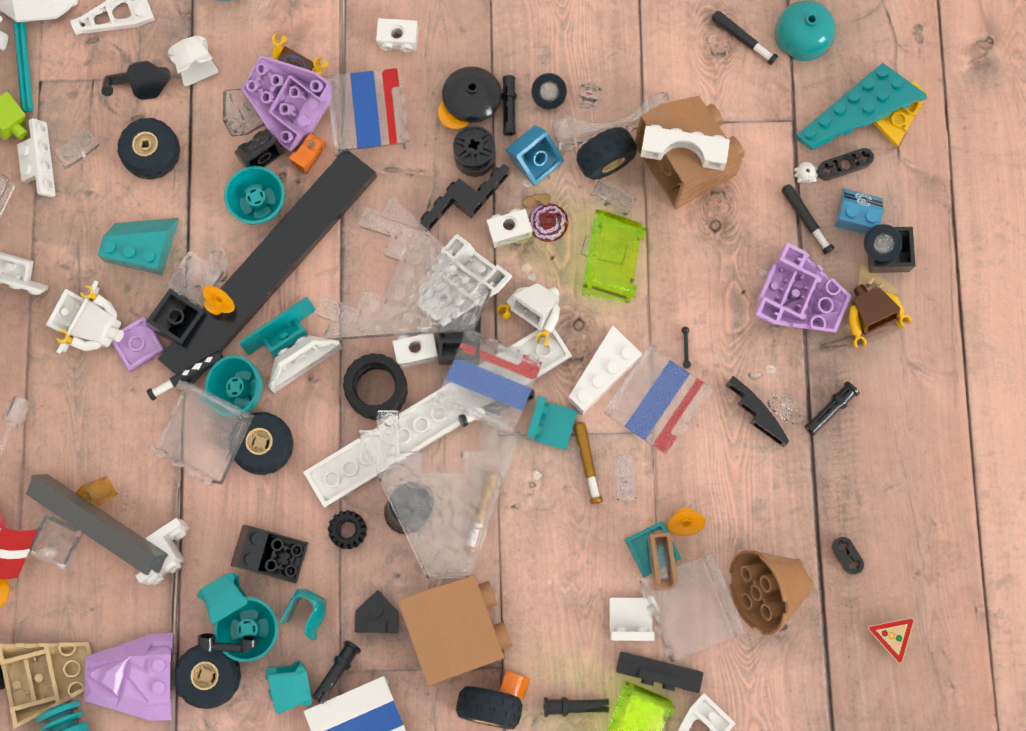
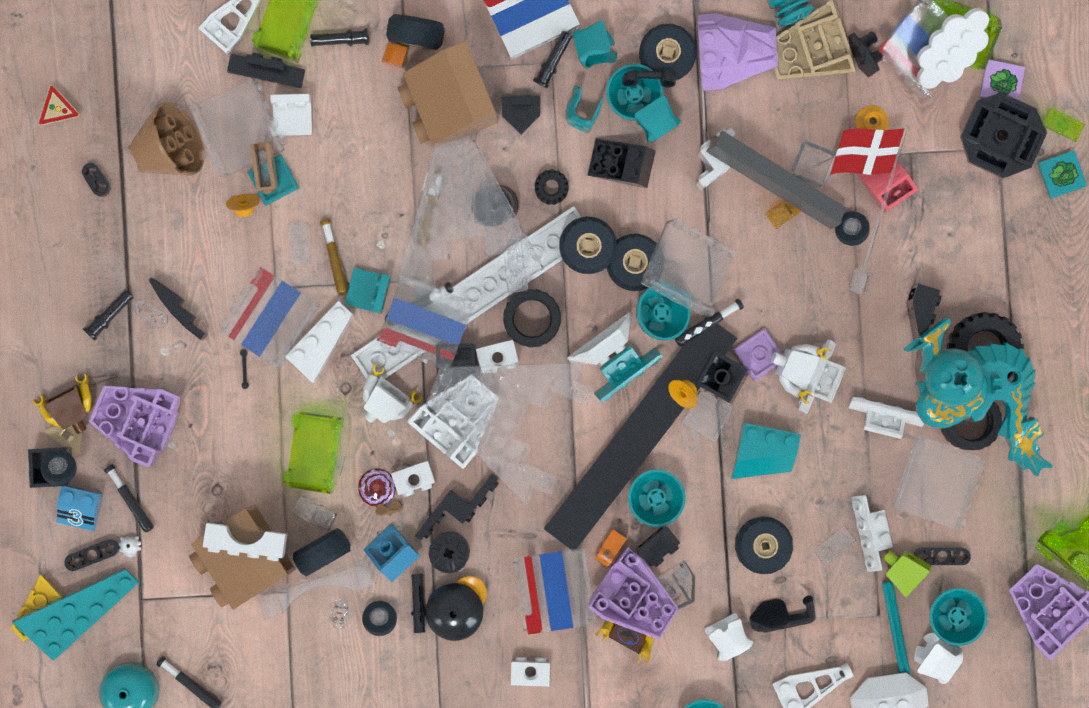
camera: 175 degrees right, 10 degrees up
(19, 470) = (853, 229): none -> black wheel
(309, 461) = (587, 245): none -> black wheel

